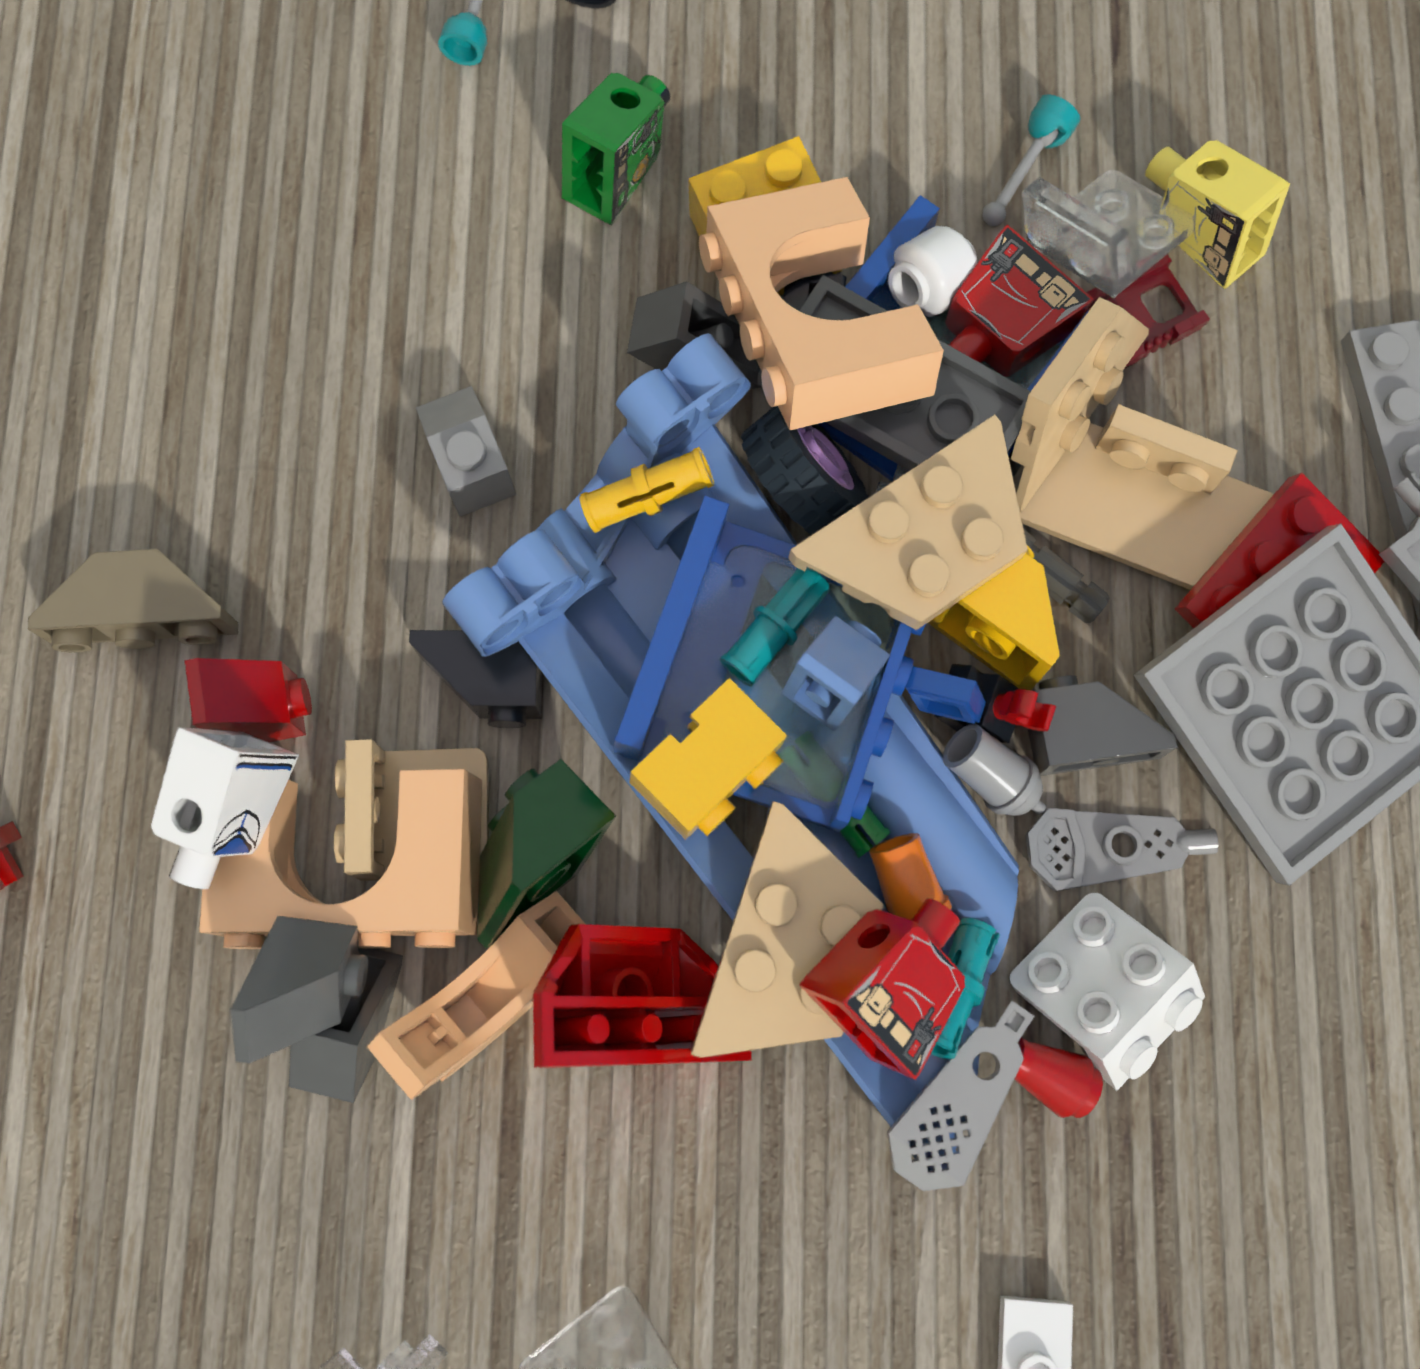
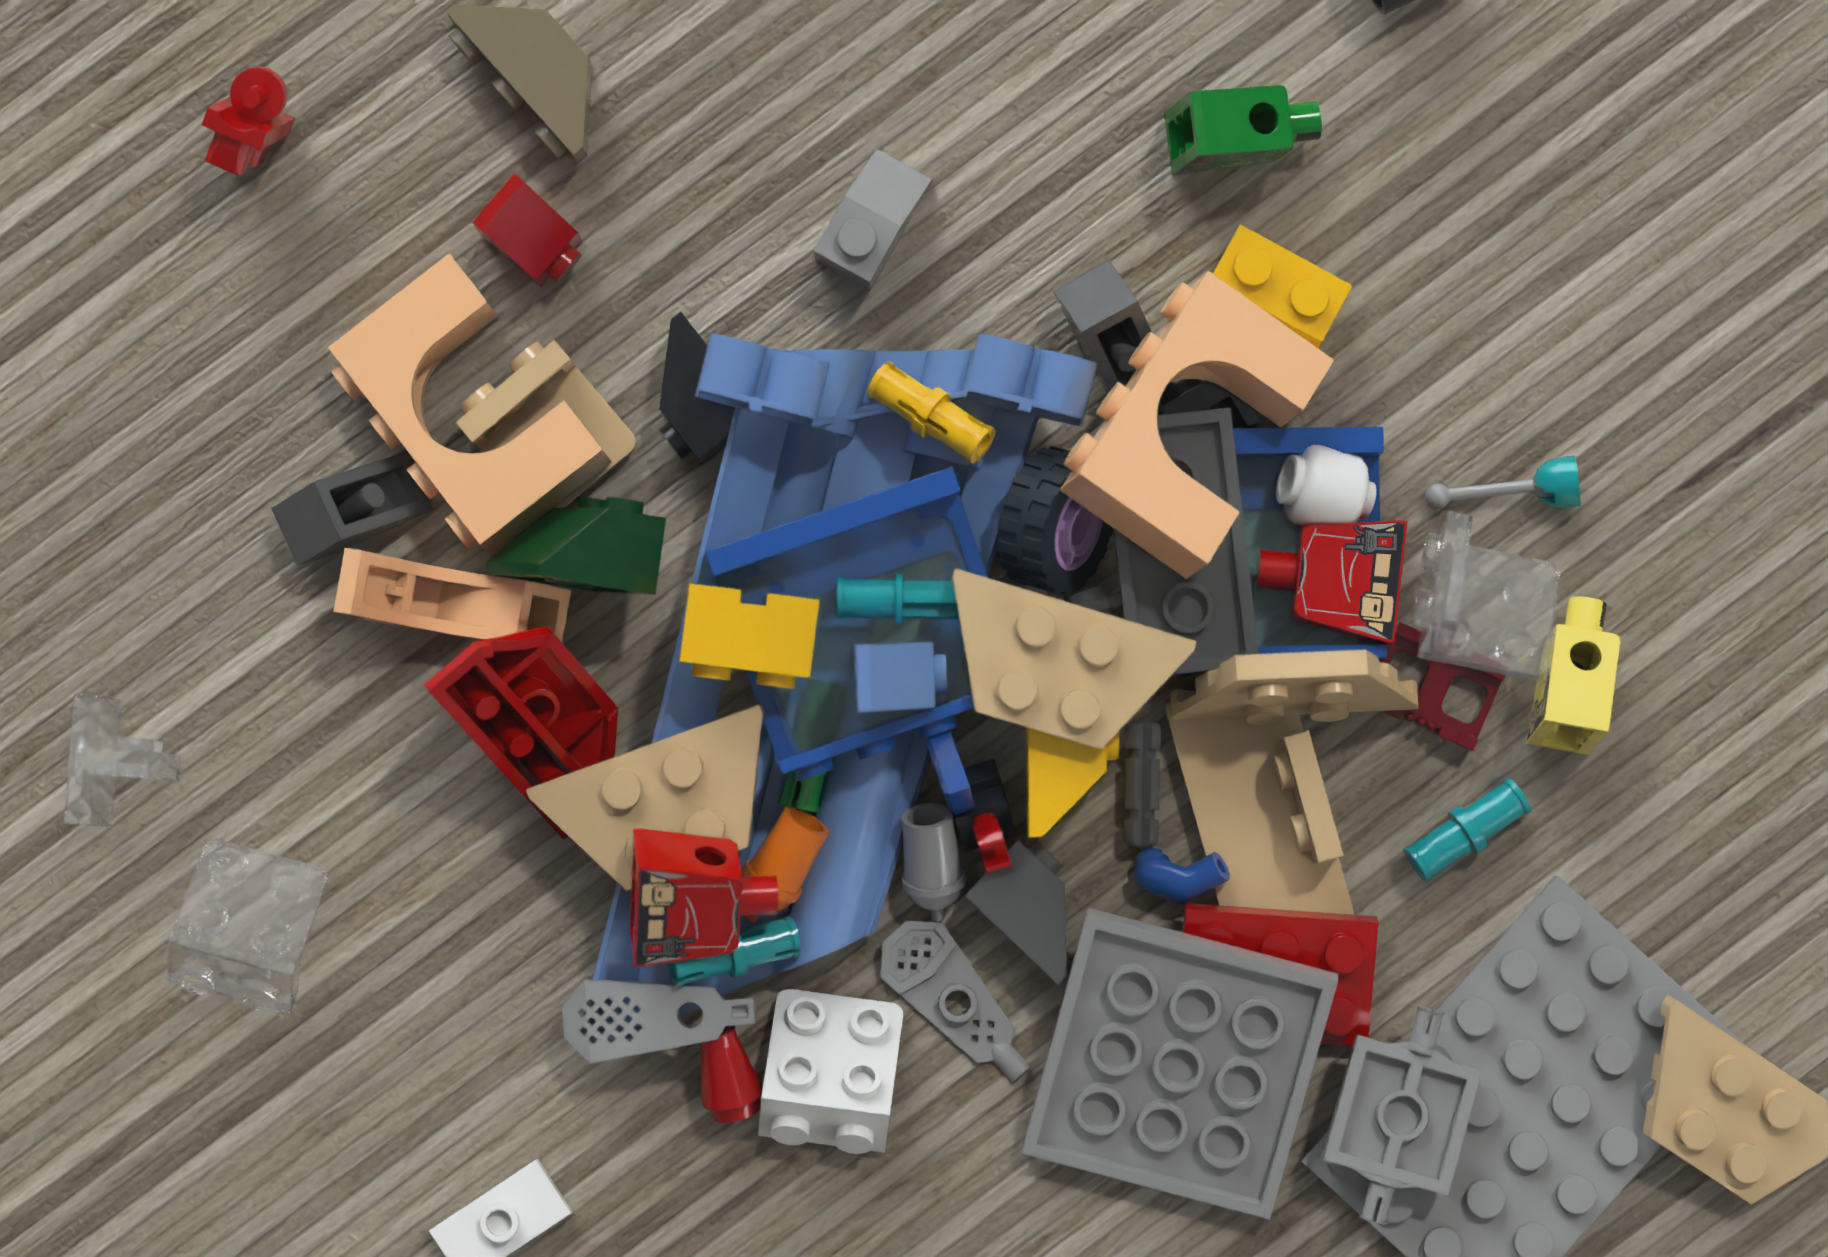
camera: 55 degrees right, 10 degrees up
(218, 798) = (435, 287): white torso -> none
(296, 986) = (350, 460): dark grey slope -> none
(1151, 604) = (1175, 883): none -> blue arm
(1266, 368) = (1467, 829): none -> teal pin

